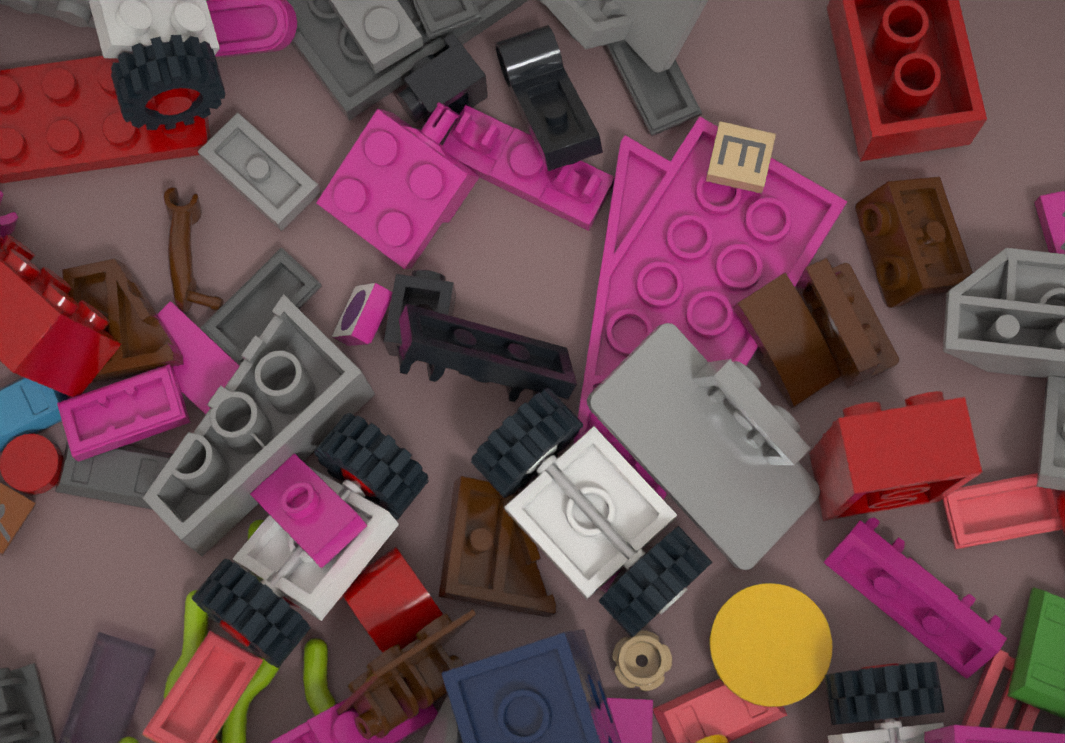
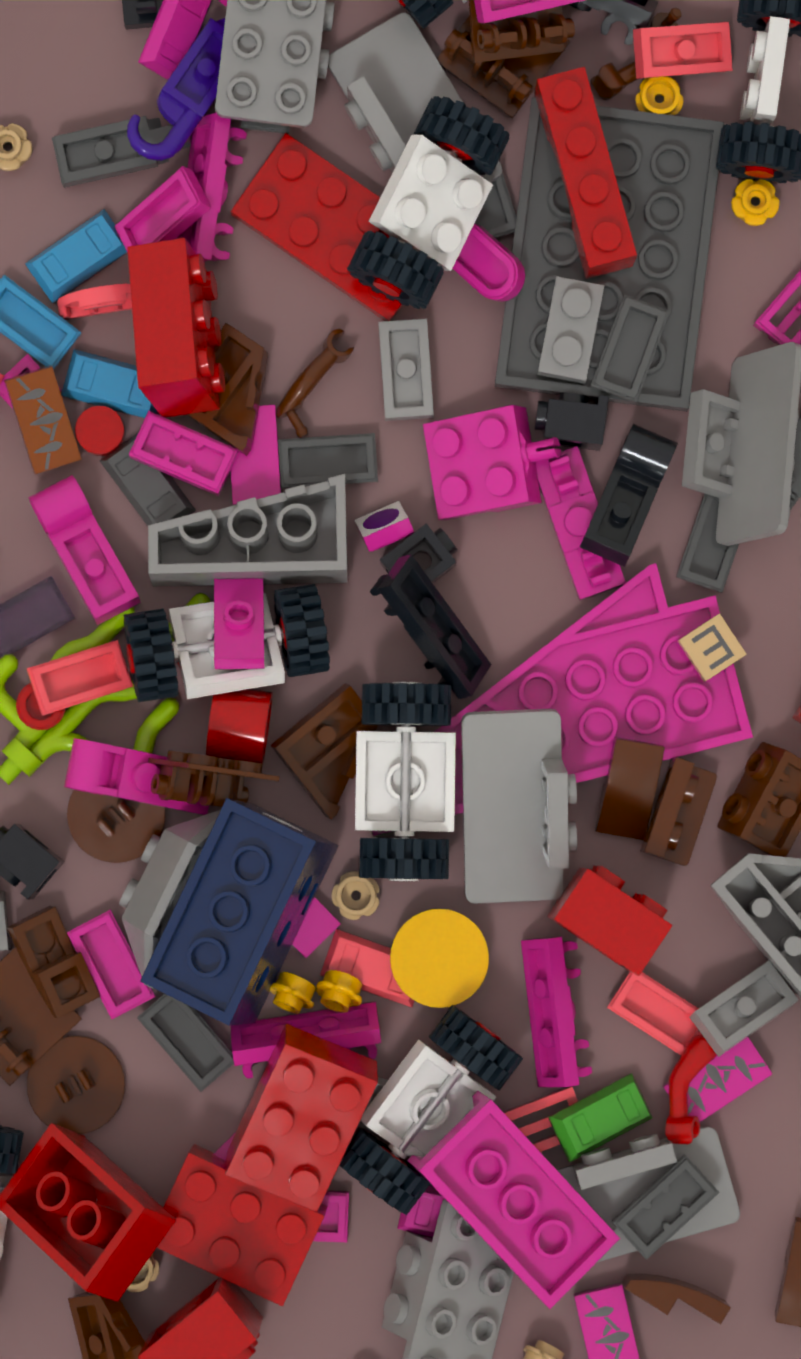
camera: 40 degrees right, 10 degrees up
(107, 579) = (84, 549): none -> dark pink plate

